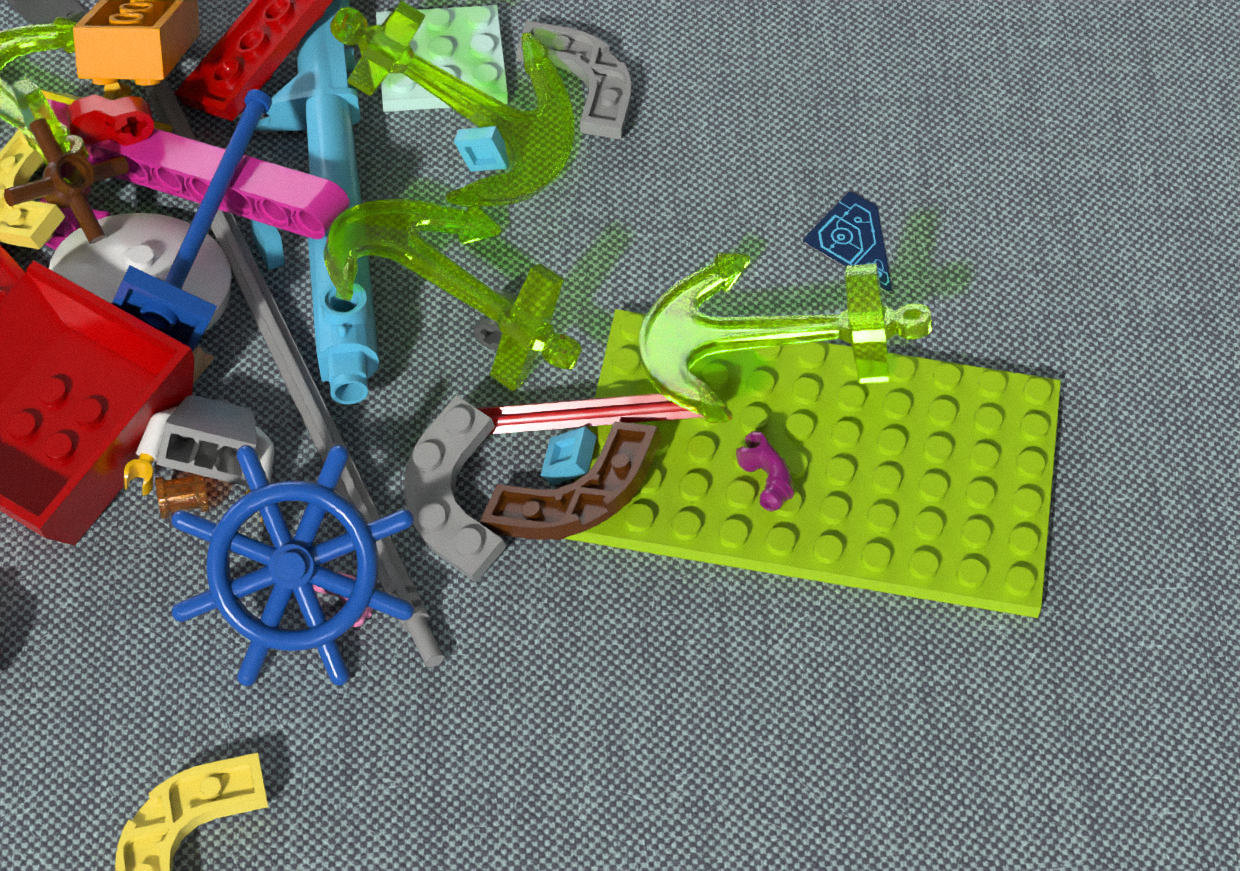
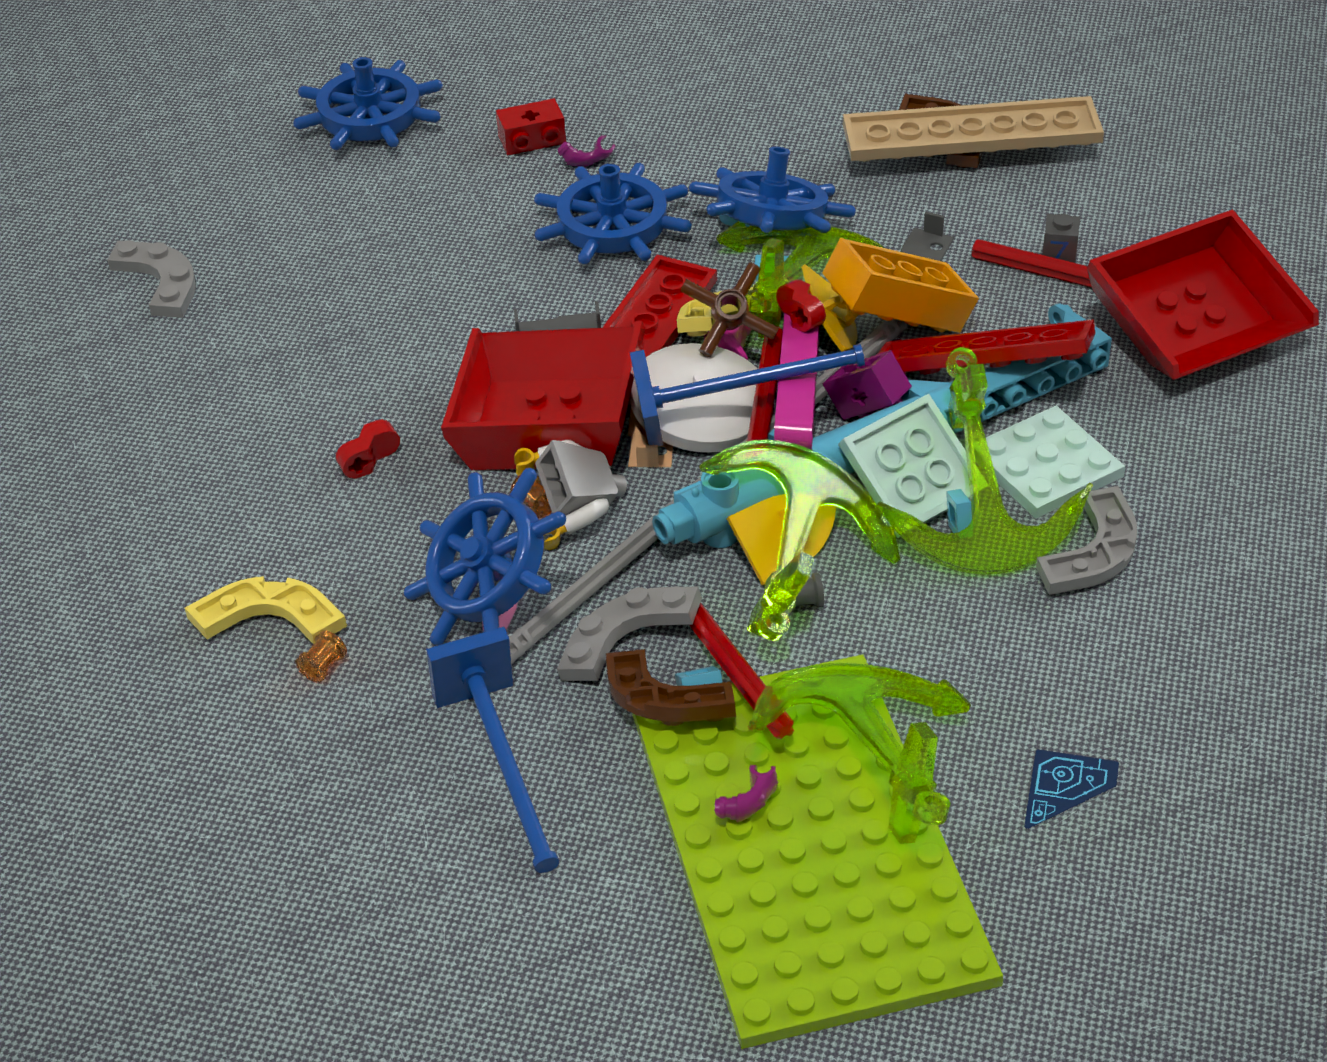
camera: 70 degrees right, 10 degrees down
(219, 234) = (765, 392): none -> red axle
(274, 130) = (867, 387): none -> magenta brick
(302, 801) = (321, 656): none -> clear orange bush
(396, 146) = (909, 459): none -> light aqua plate
(410, 305) = (760, 531): none -> yellow shield
(451, 649) = (473, 670): none -> blue tile

